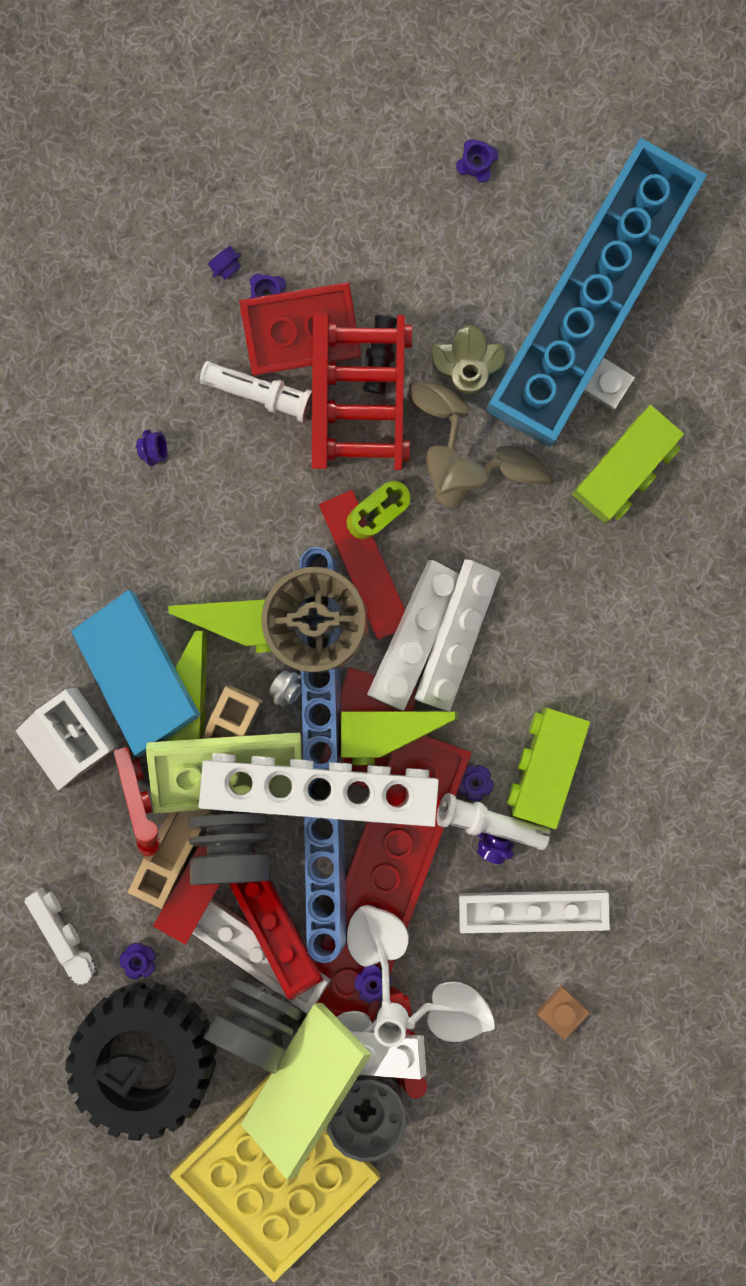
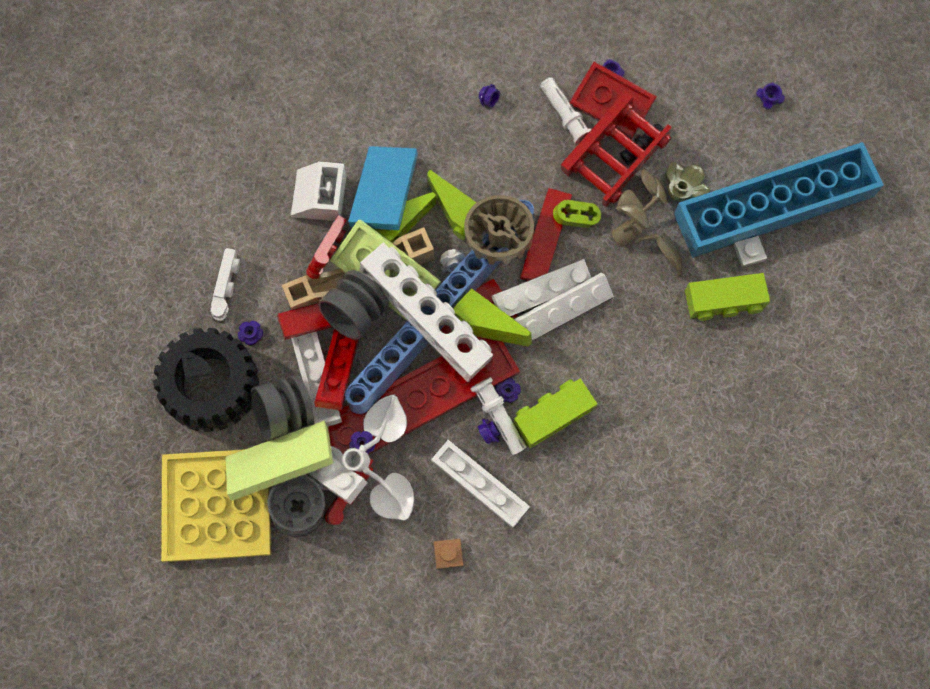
camera: 35 degrees right, 15 degrees down
(225, 263) = (602, 42): dark purple plate -> none

